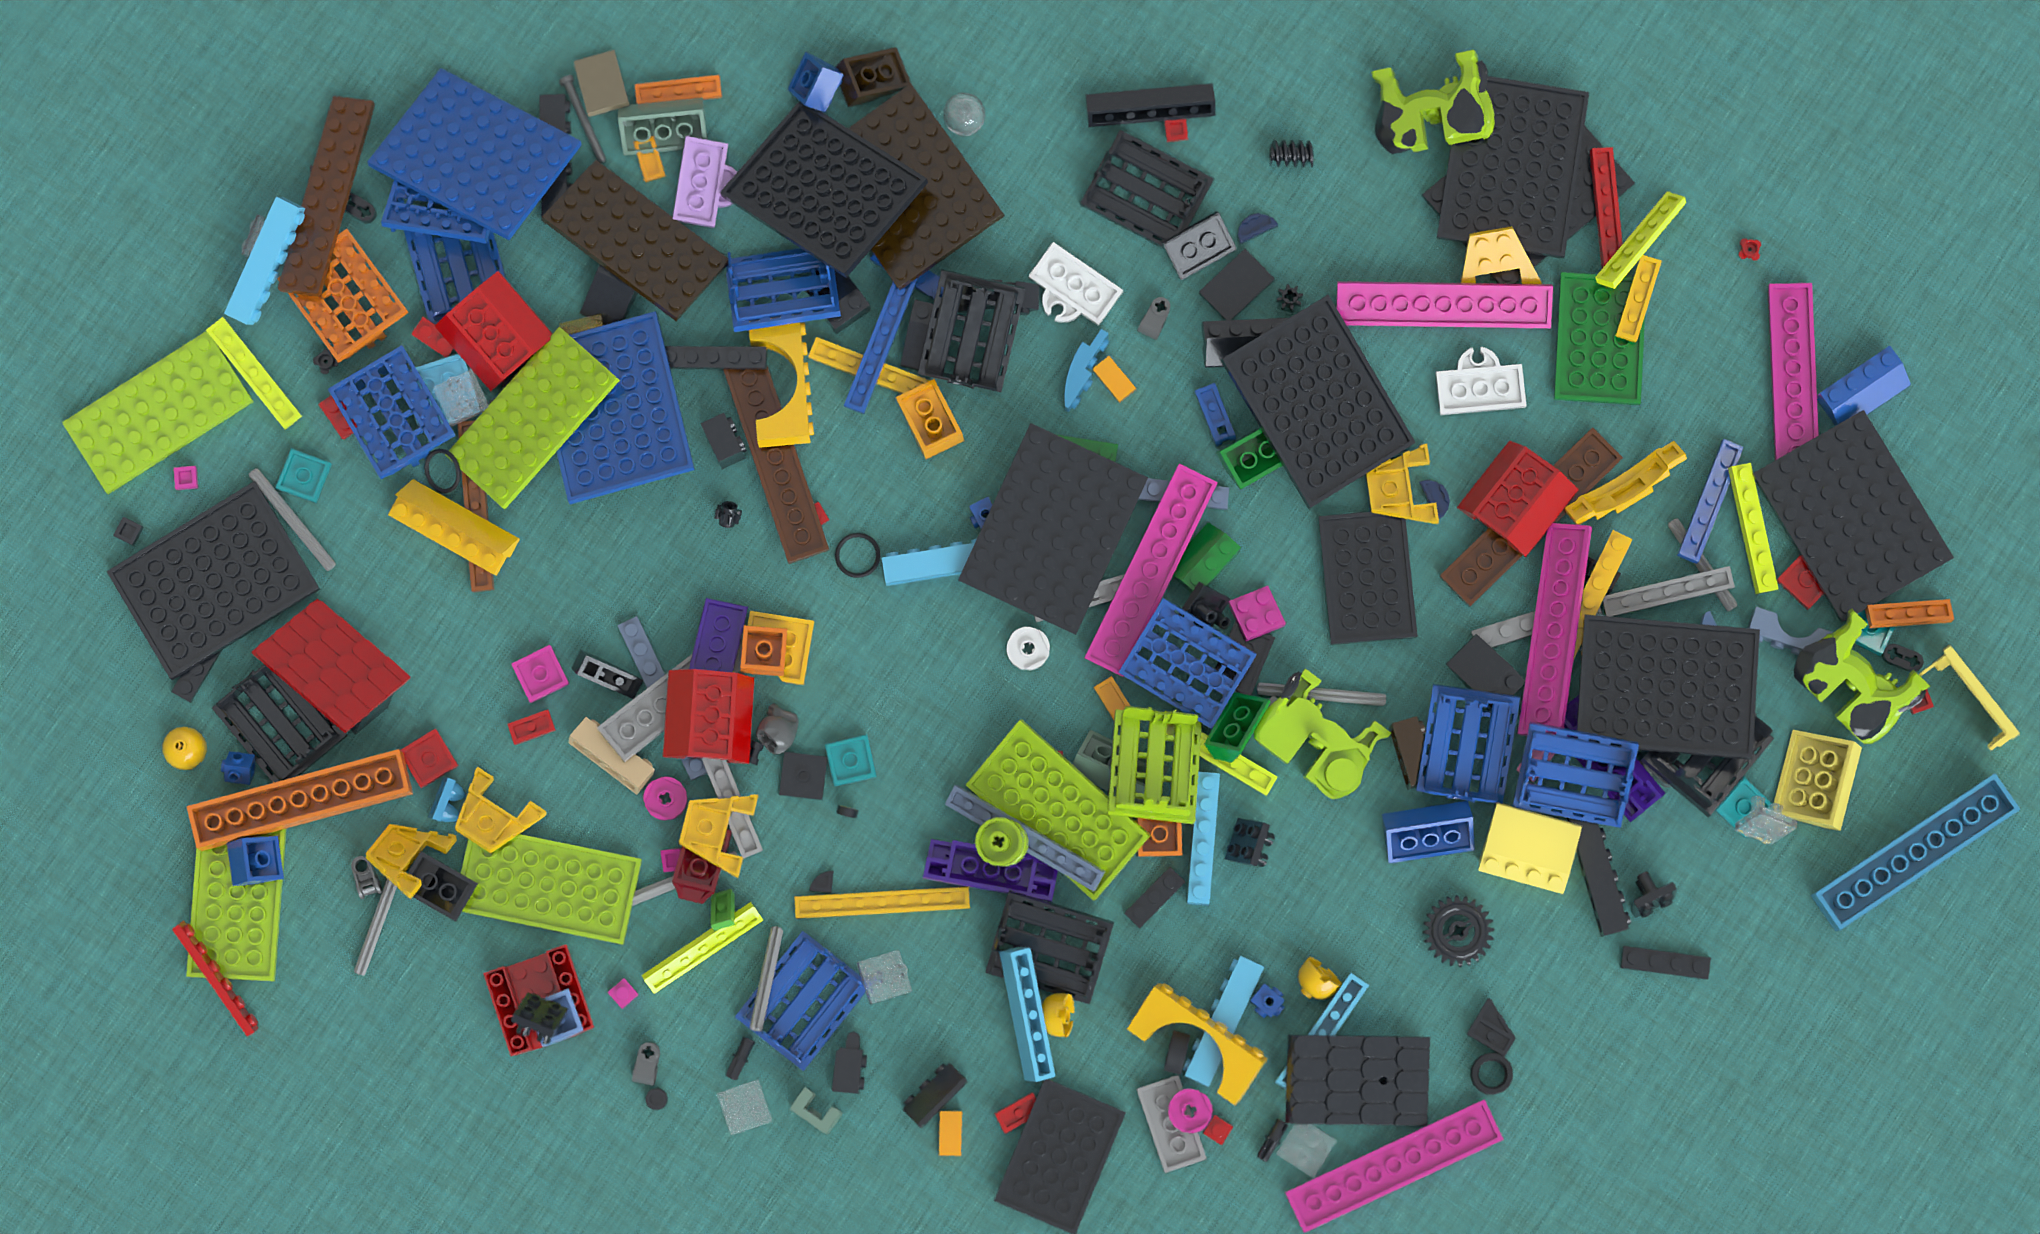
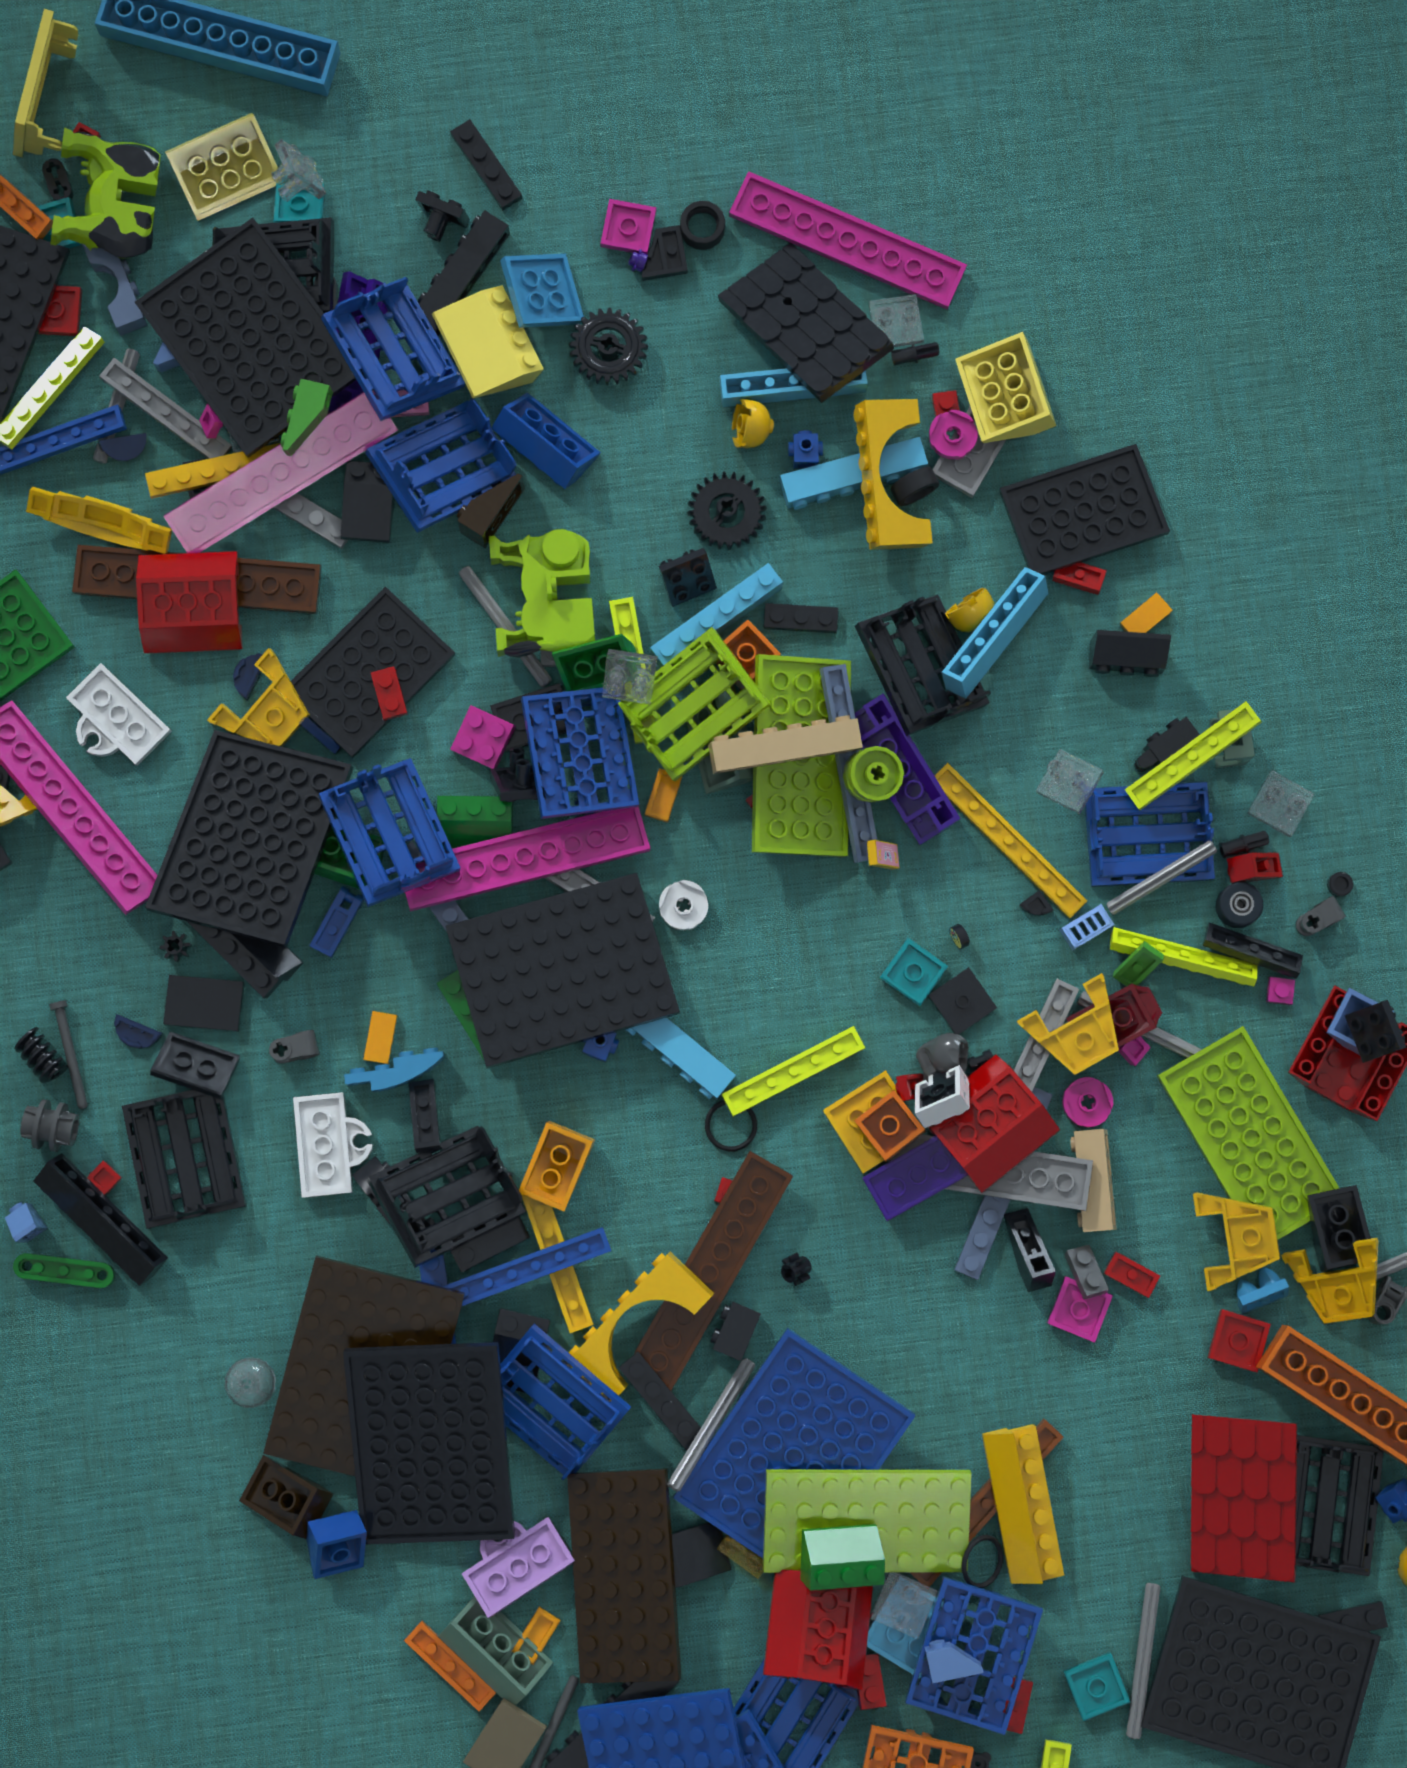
camera: 140 degrees left, 0 degrees up
(401, 391) = (950, 1662): none -> medium blue slope
(523, 378) = (842, 1557): none -> slope
(559, 698) = (1086, 1272): none -> dark grey plate
(665, 997) = (1253, 950): none -> black plate
(679, 374) = (711, 1425): none -> light grey axle
(706, 1022) = (1231, 910): none -> black wheel
(718, 1049) = (1254, 867): none -> red slope
(751, 698) = (942, 1096): none -> white piece
(776, 689) = (906, 1085): none -> red plate
(783, 884) = (1070, 937): none -> light blue slope
(826, 1068) = (1193, 755): none -> neon yellow plate
(855, 624) = (793, 1071): none -> neon yellow plate
(944, 806) = (883, 854): none -> tile
(1036, 362) = (424, 1116): none -> black plate
(1070, 798) = (785, 745): none -> tan brick
(1138, 57) = (64, 1270): none -> green plate
(1189, 1176) = (1005, 390): none -> light yellow slope
(1190, 56) = (24, 1222): none -> medium blue slope
(1207, 736) = (629, 676): none -> clear plate
(1235, 519) = (417, 818): none -> blue piece
(1242, 119) = (49, 1125): none -> dark grey piece
(1270, 891) = (743, 494): none -> black gear
(1313, 191) = (69, 1051): none -> dark grey bar
(1339, 575) = (389, 693): none -> red plate
(1353, 506) = (319, 735): none -> dark blue tile
(1503, 1006) = (637, 261): none -> dark purple plate
(1534, 1021) = (628, 226): none -> dark pink plate
(1536, 918) = (542, 290): none -> dark azure plate
(1578, 679) = (309, 410): none -> bright green slope
(1631, 611) = (210, 422): none -> dark pink plate
(1666, 545) = (123, 447): none -> dark blue tile

